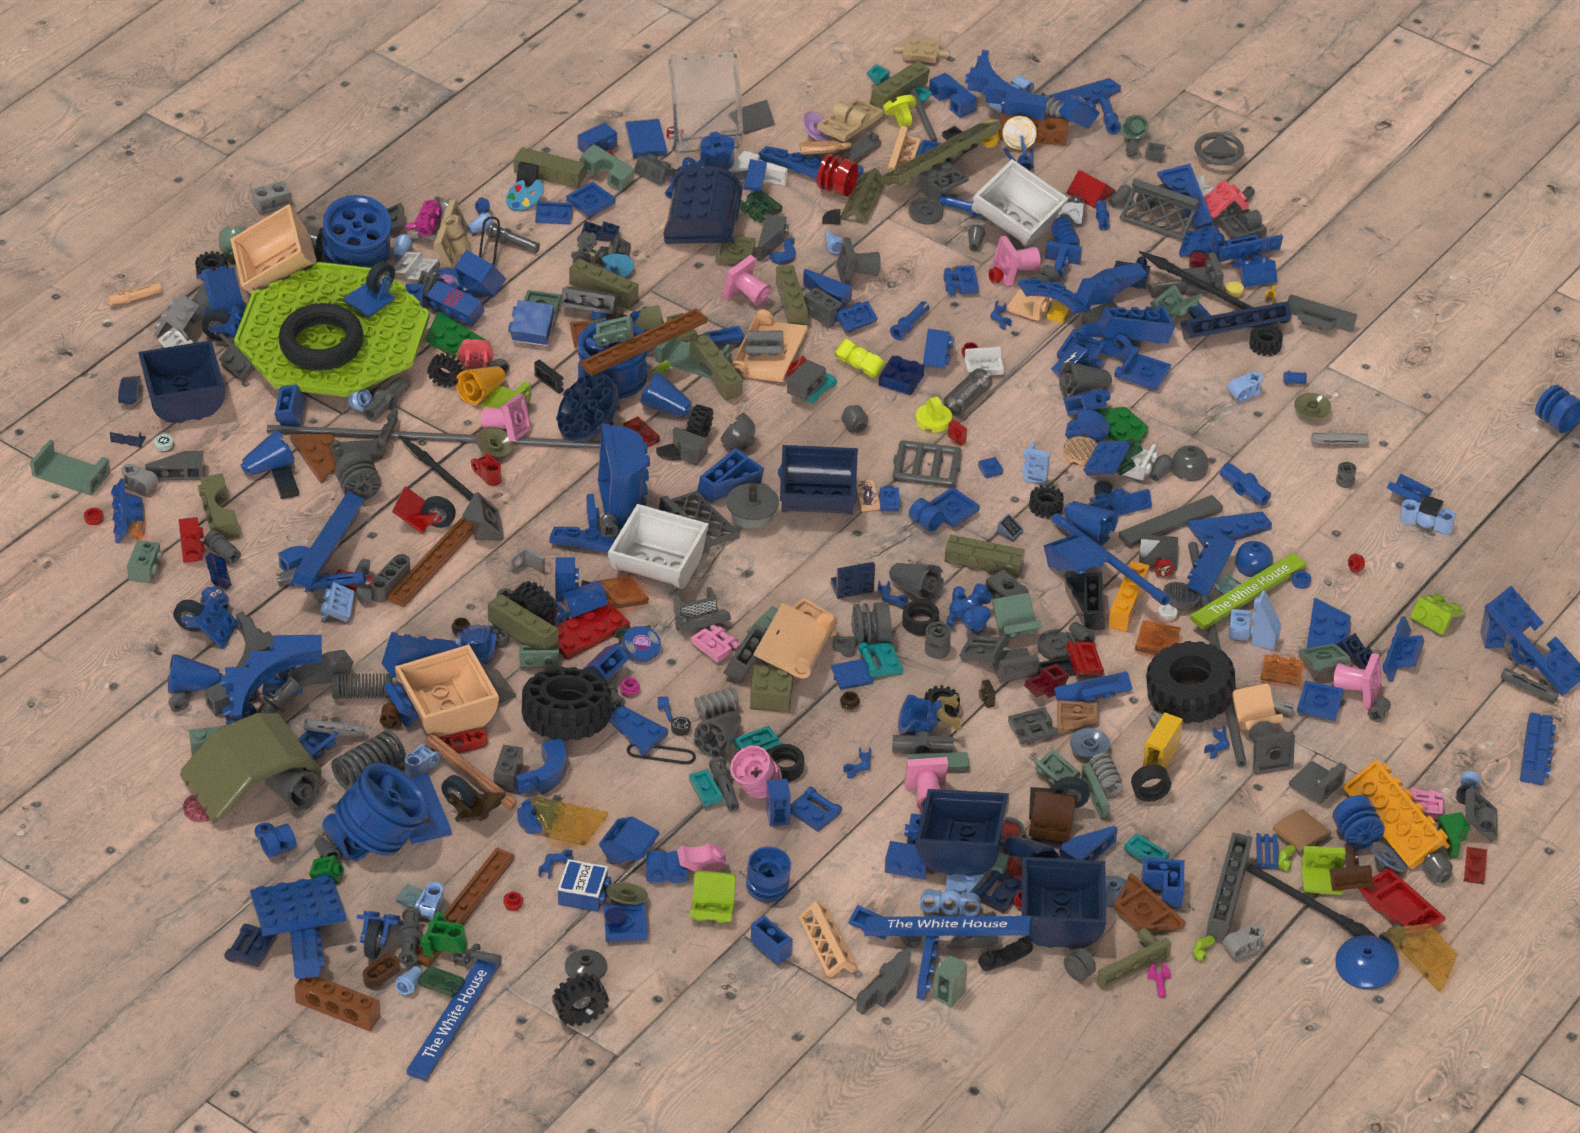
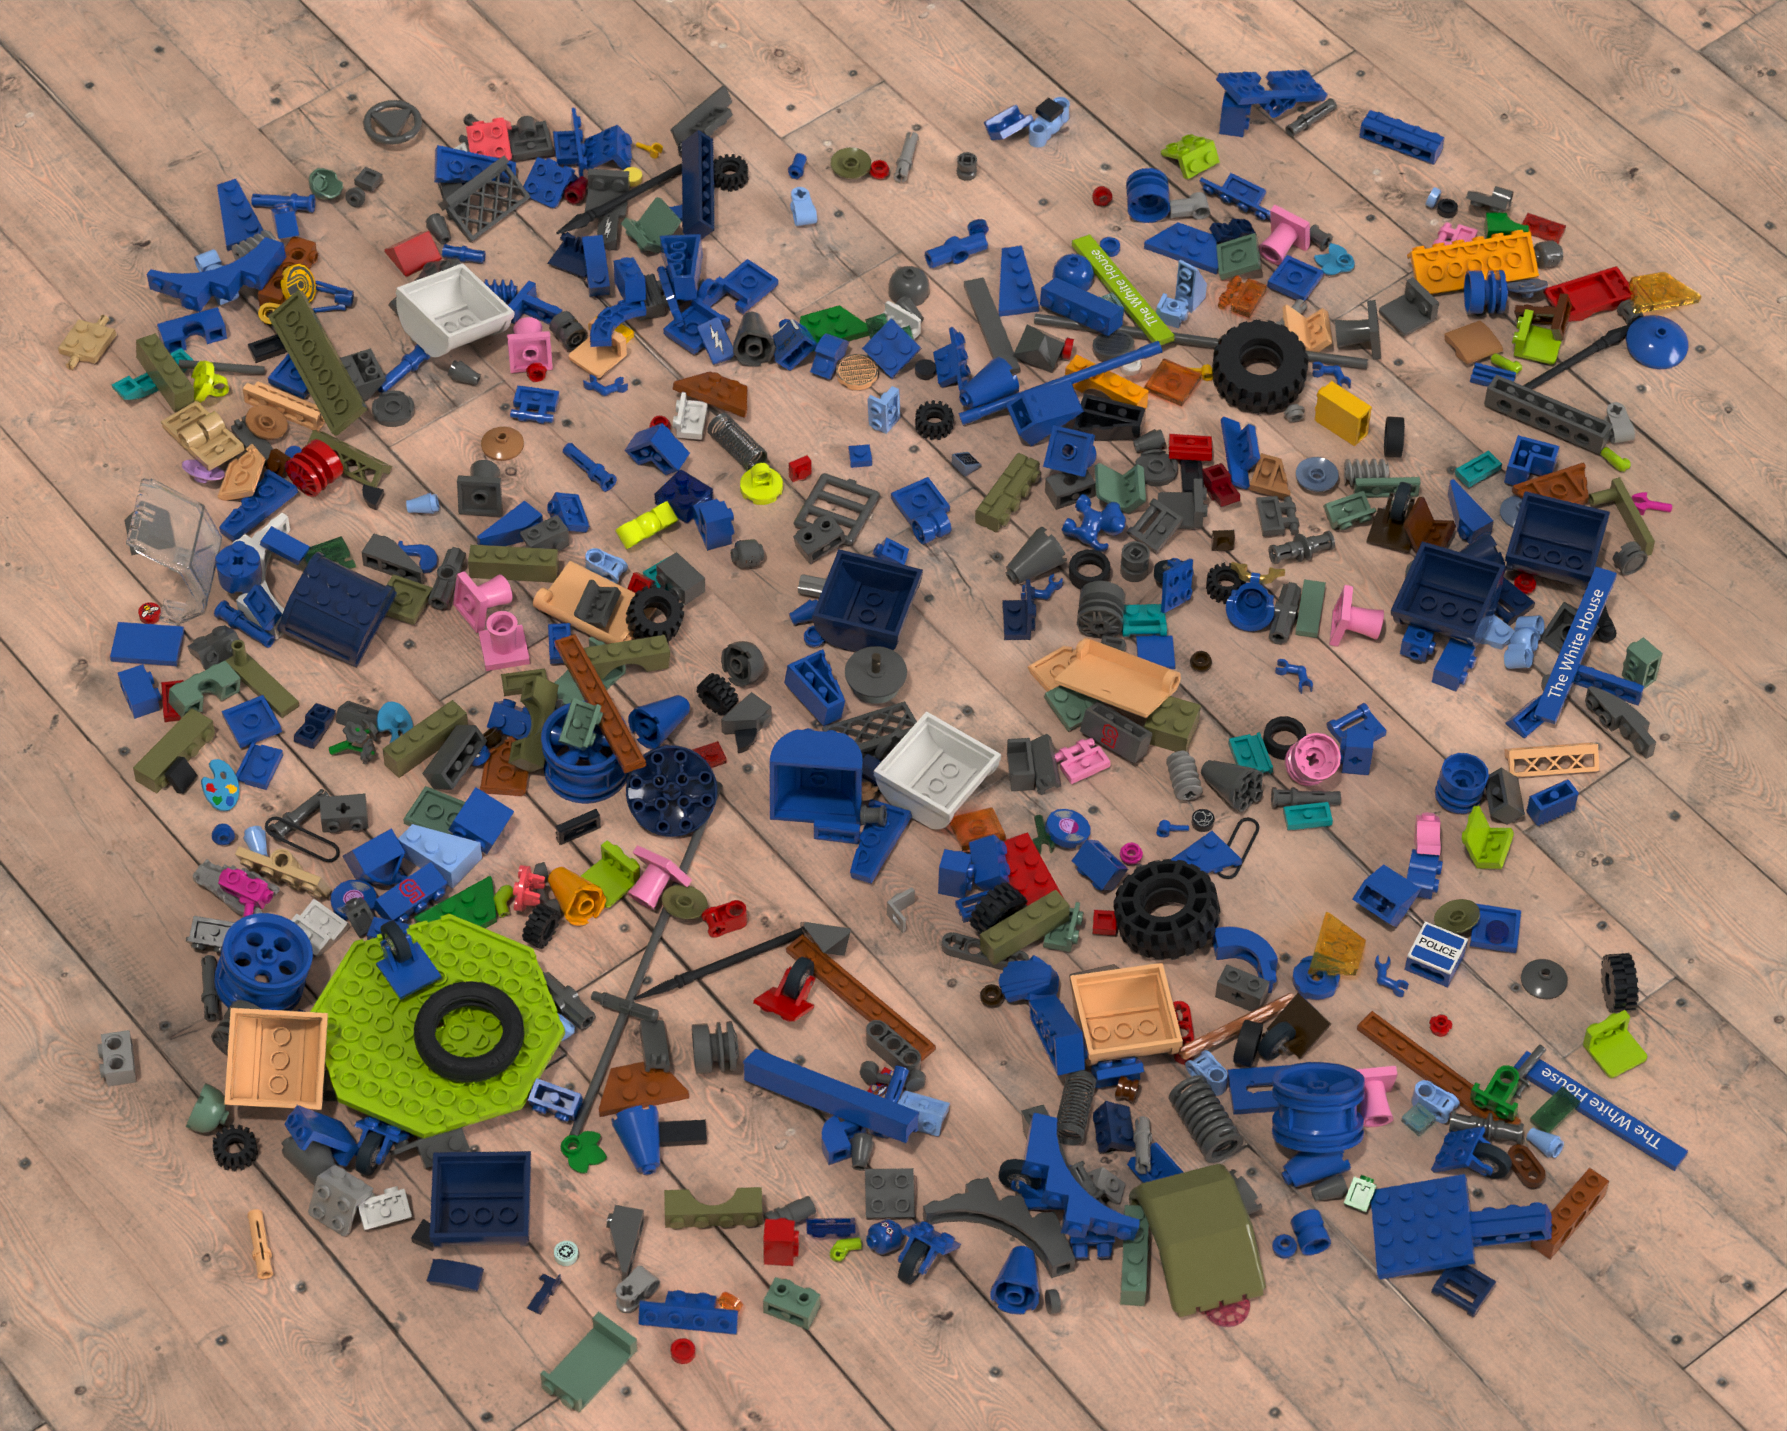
camera: 75 degrees left, 10 degrees up
(200, 581) = (843, 1246): none -> lime arm
(254, 433) = (586, 1151): none -> green plate
(255, 594) = (889, 1193): none -> dark grey plate
(295, 716) = (1110, 1183): none -> light grey bracket
(357, 712) = (1113, 1127): none -> dark blue bracket
(420, 857) = (1375, 1105): none -> bright pink plant
(448, 763) = (1247, 1043): none -> black tyre
(496, 311) = (448, 853): none -> light blue wedge
(520, 258) = (344, 813): none -> dark grey brick
(523, 1014) = (1613, 1045): none -> lime bracket
(632, 196) = (261, 681): none -> olive piece
(712, 303) = (503, 642): none -> bright pink plant
(760, 363) = (659, 599): none -> black tyre
(766, 266) = (446, 578): none -> dark grey piece
(772, 905) = (1504, 796): none -> dark grey brick
(809, 343) = (605, 564): none -> light blue piece
(875, 391) = (714, 523): none -> blue brick
(879, 142) = (266, 422): none -> medium nougat dish
(884, 452) = (819, 538): none -> dark grey brick
(917, 274) = (502, 443): none -> medium nougat dish
(921, 664) = (1176, 581): none -> blue plate
(999, 743) = (1301, 547): none -> dark grey piece
(1018, 372) = (716, 391): none -> dark orange wing
(1031, 572) = (1070, 451): none -> blue plant
(1277, 492) = (977, 226): none -> clear blue tile
(1317, 425) = (879, 169): none -> red plate
(1357, 726) = (1336, 261): none -> dark azure plate
(1363, 584) = (1148, 195): none -> blue wheel
(1373, 622) = (1193, 206): none -> light grey piece

